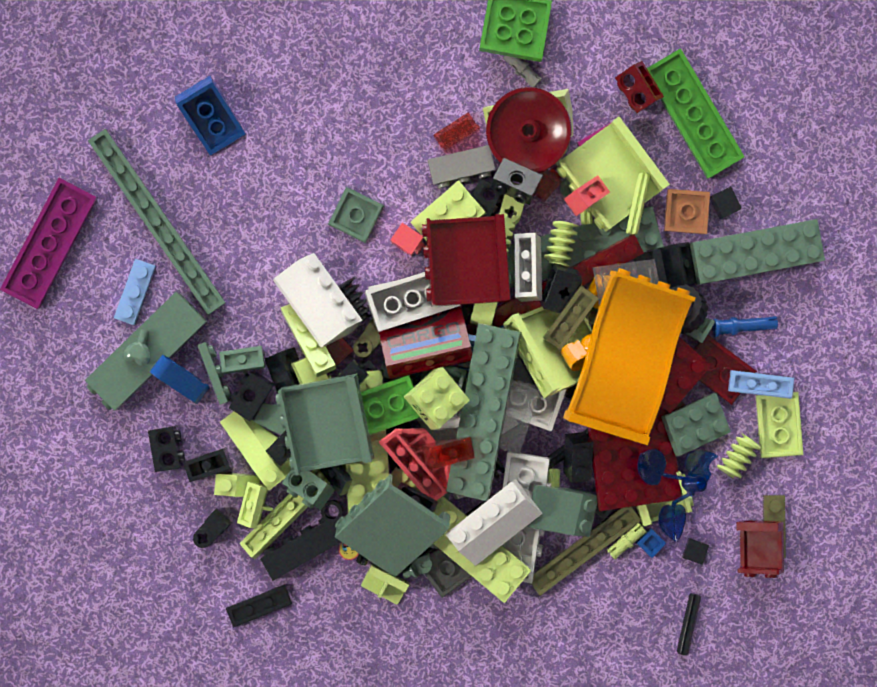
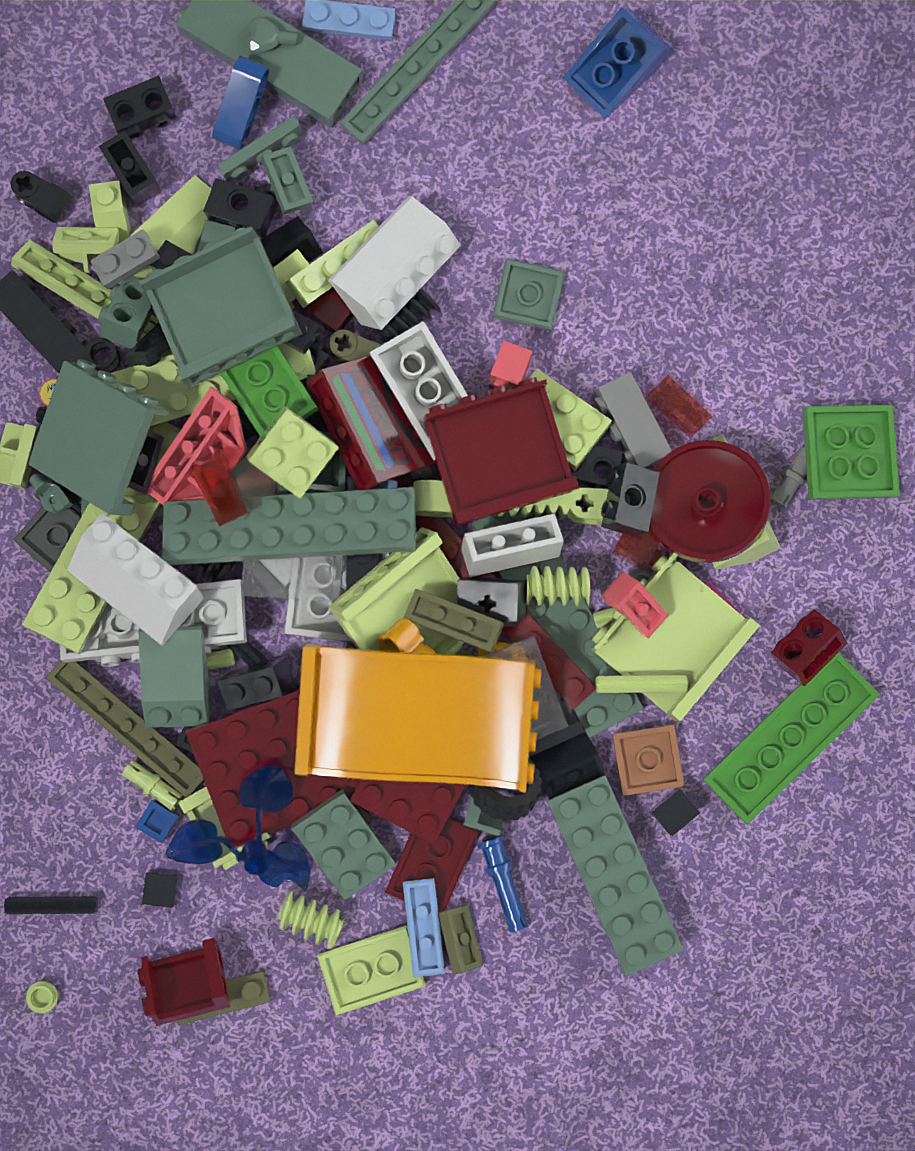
camera: 75 degrees right, 5 degrees down
(273, 481) = (125, 259): none -> light grey plate
(746, 642) = (42, 997): none -> yellowish green plate
(774, 362) = (460, 939): none -> olive plate

